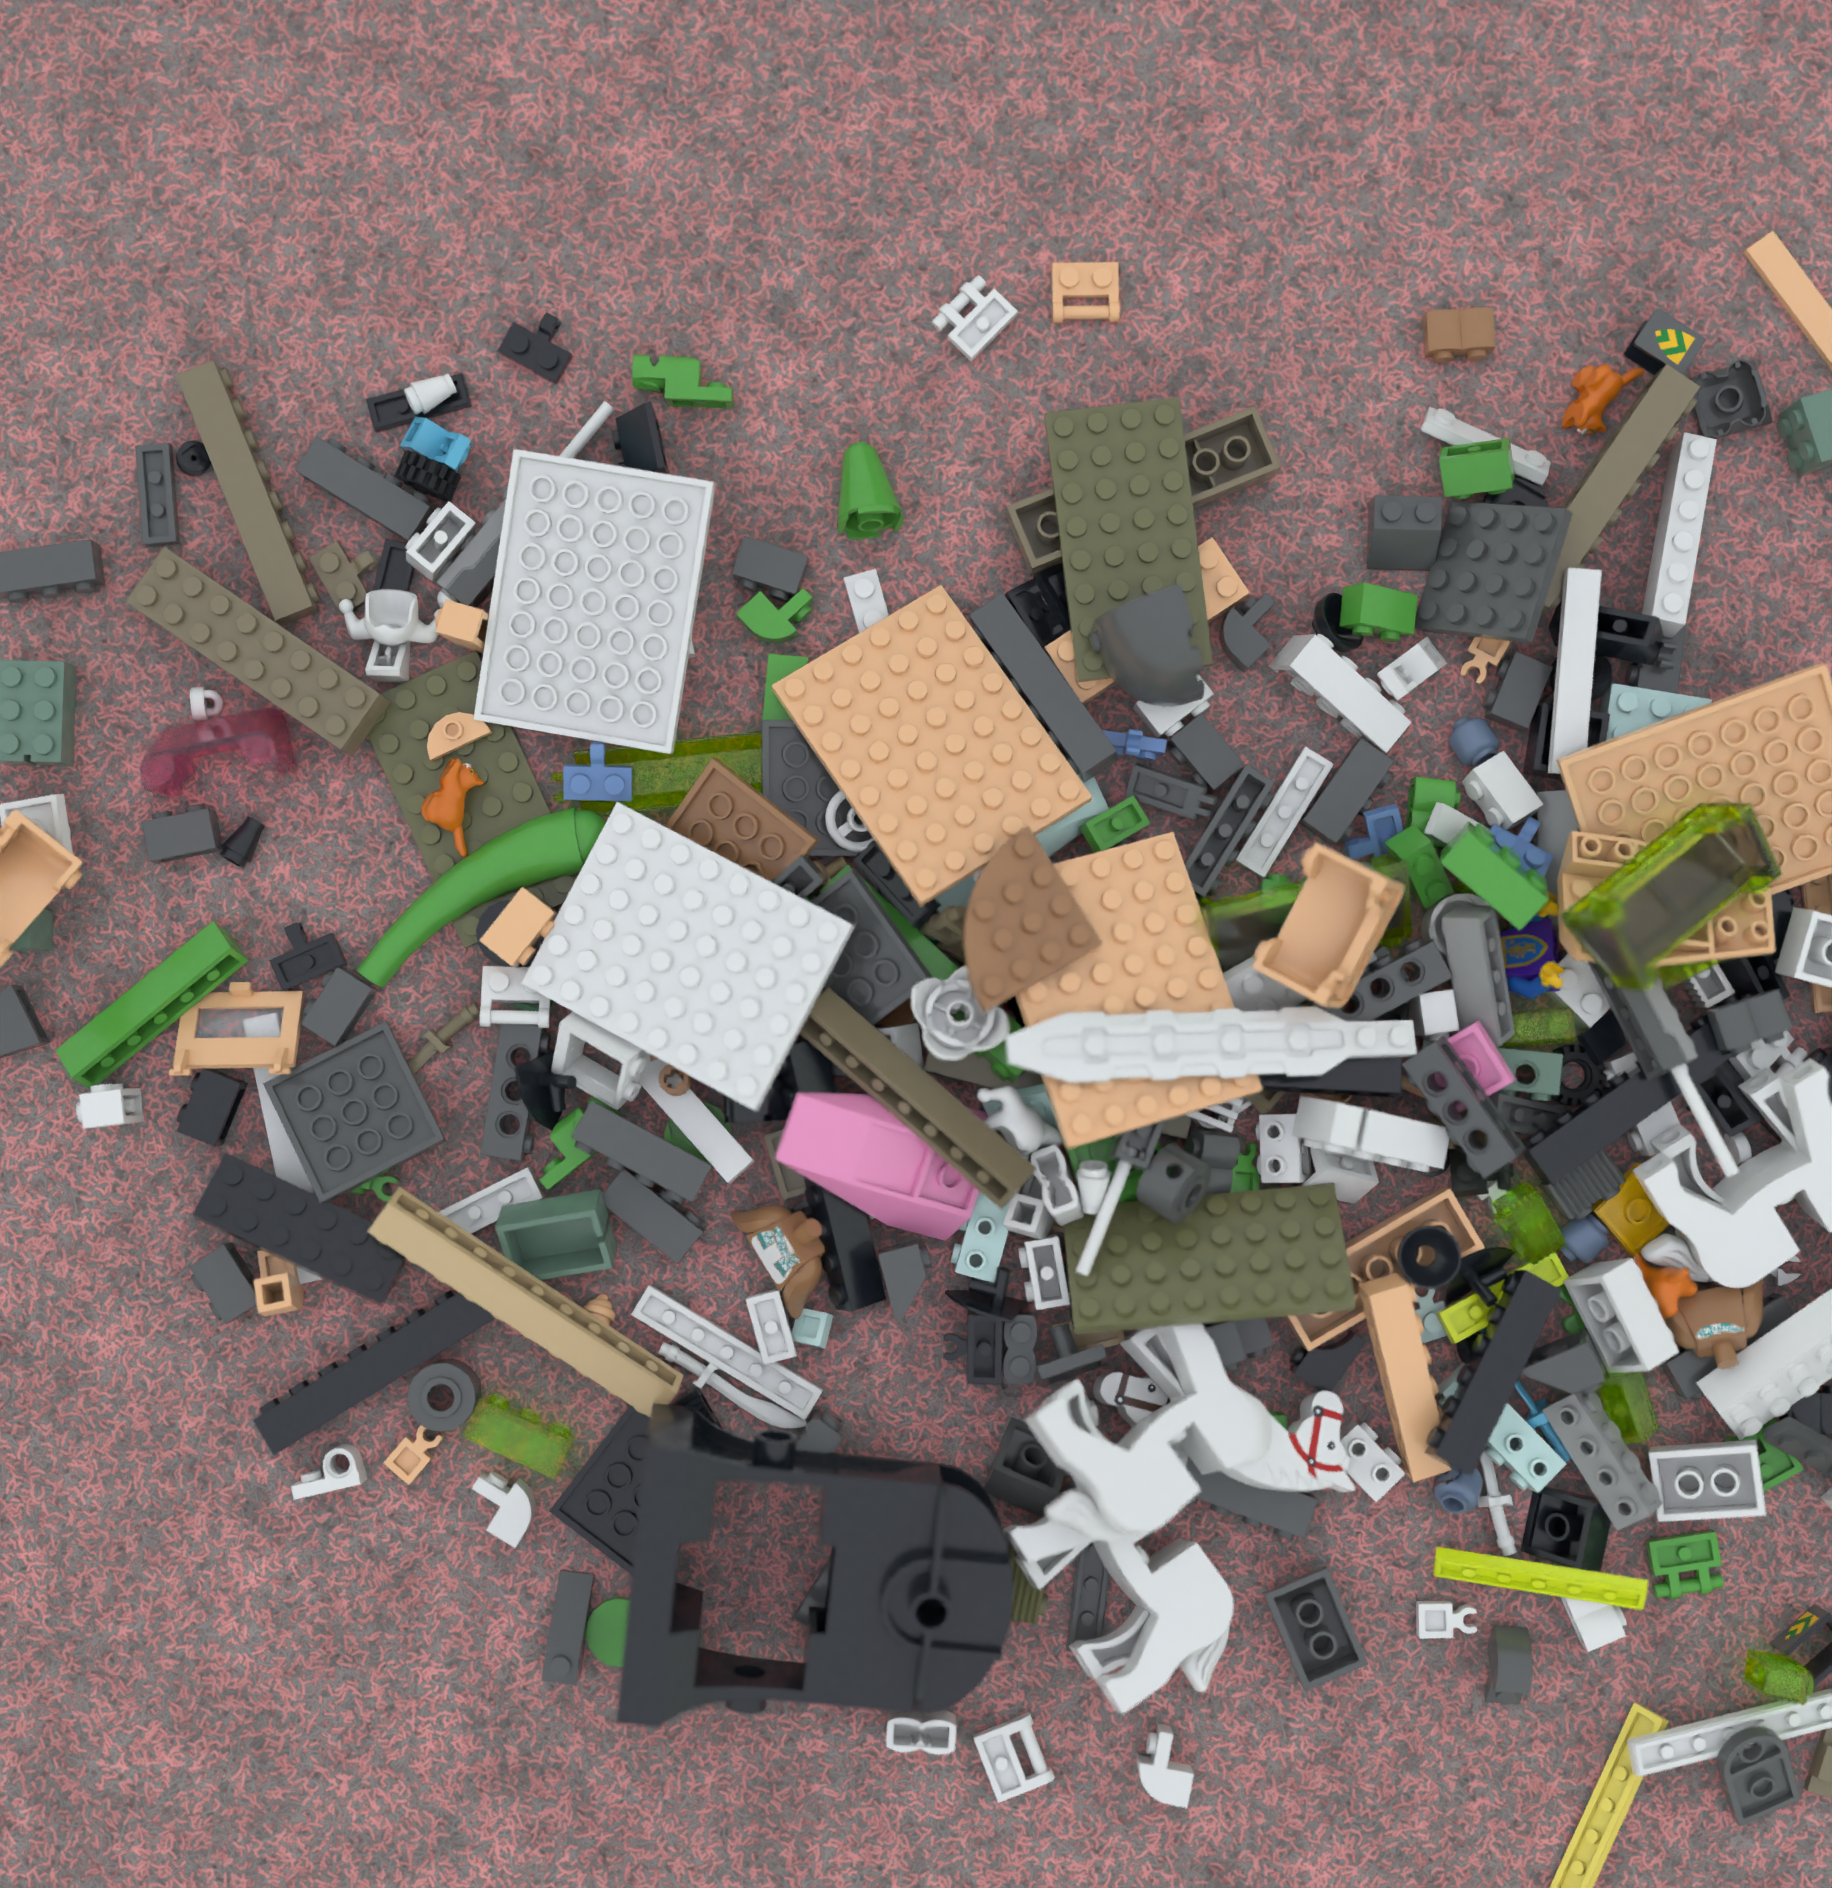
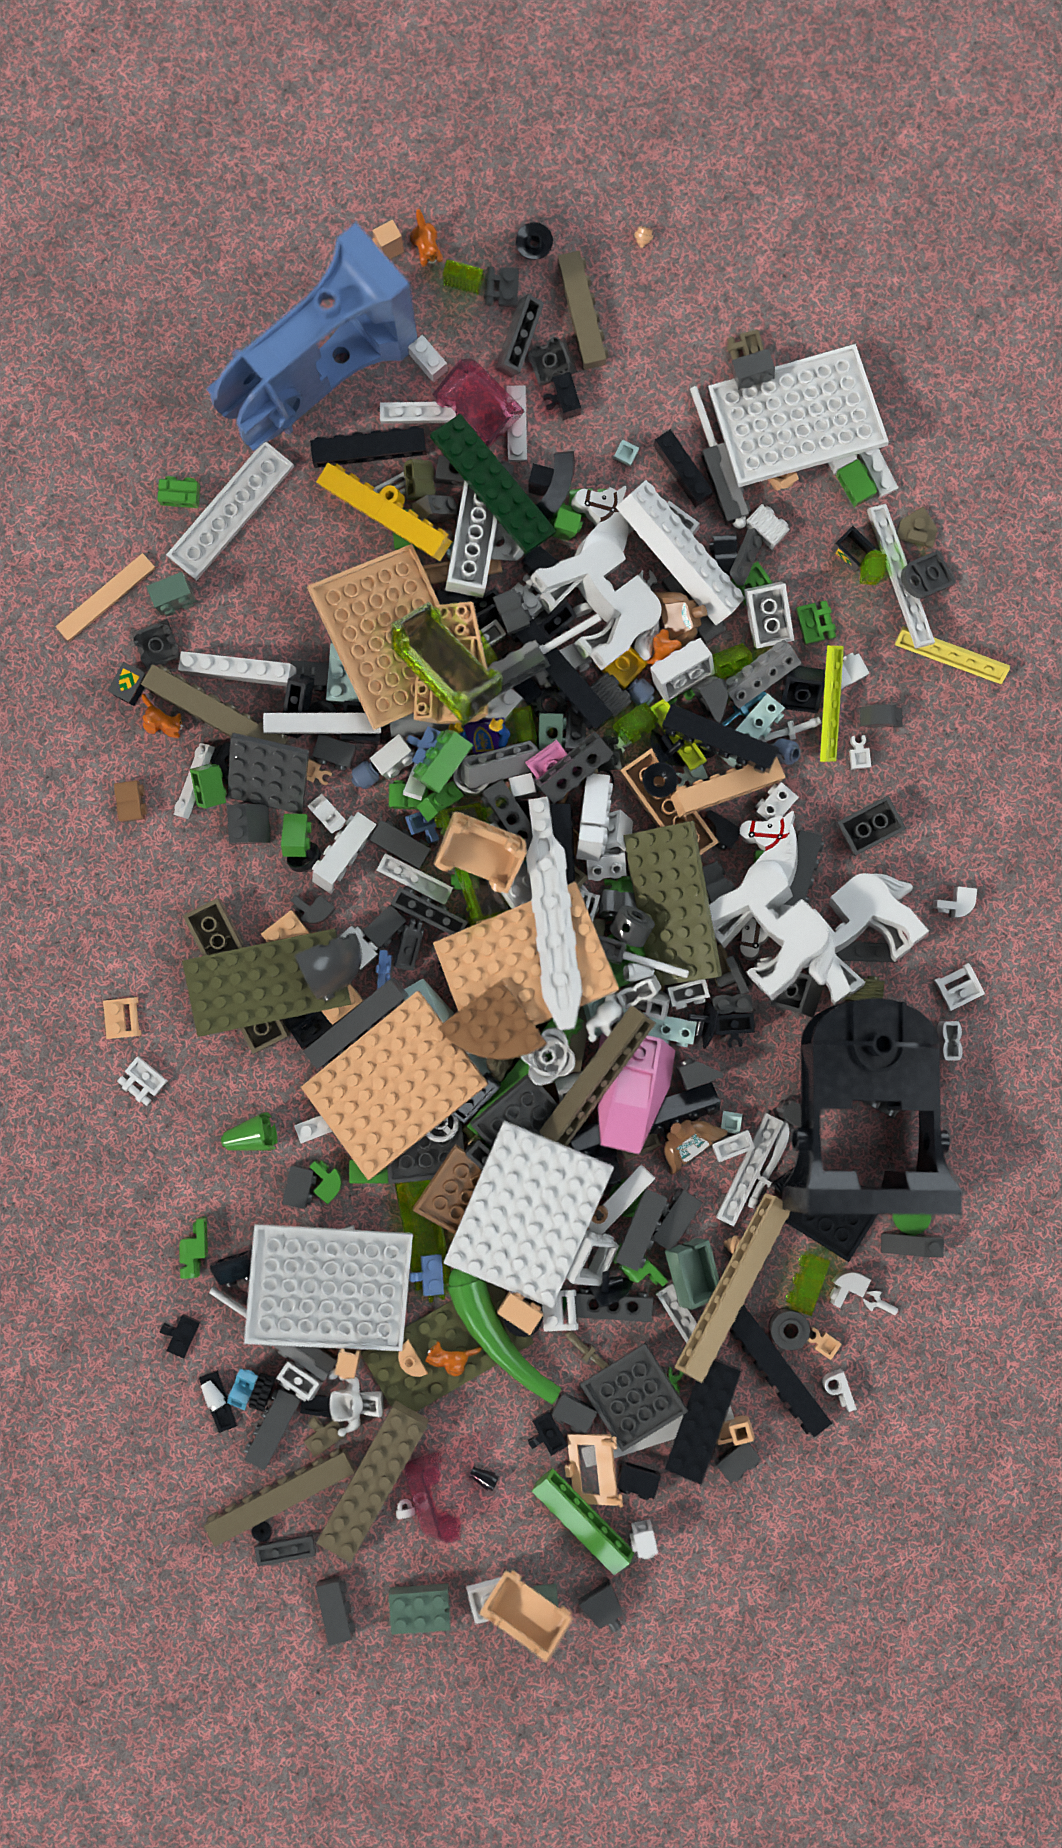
camera: 100 degrees left, 0 degrees up
(182, 835) = (483, 1514): dark grey piece -> none
(472, 1559) = (879, 1303): none -> white bar
(1114, 825) = (431, 975): bright green plate -> none

